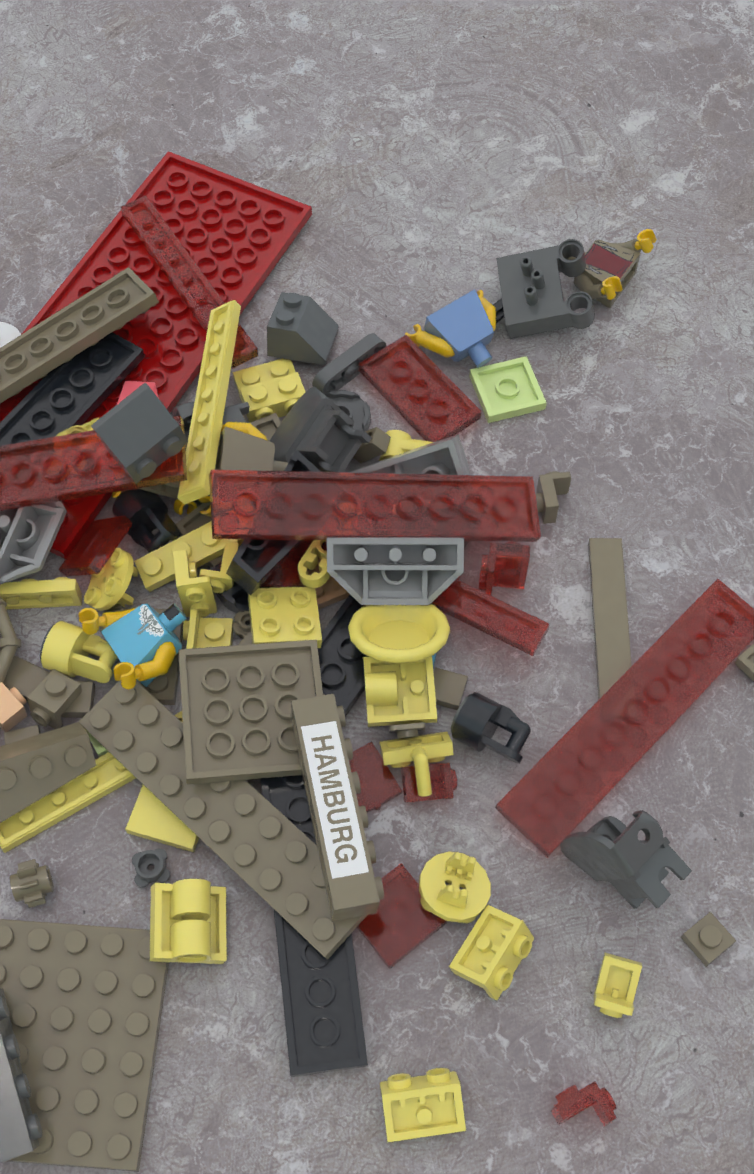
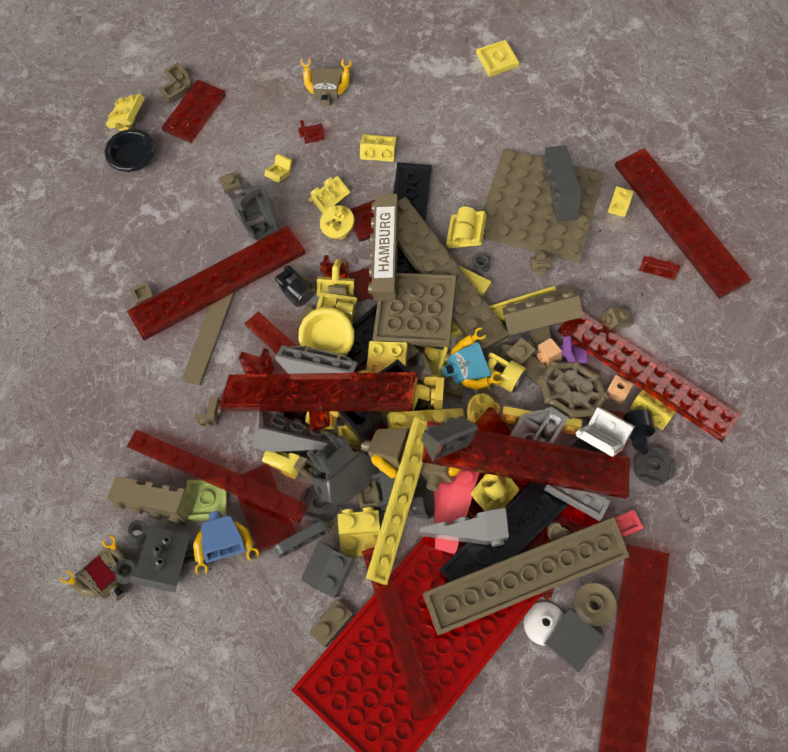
camera: 165 degrees left, 5 degrees up
(98, 390) = (485, 529): none -> light grey wedge
(223, 617) = (422, 366): none -> light grey tile
(286, 278) = (331, 623): none -> dark tan plate
(505, 408) = (218, 476): none -> clear red plate
(581, 357) = (151, 499): none -> dark tan wedge

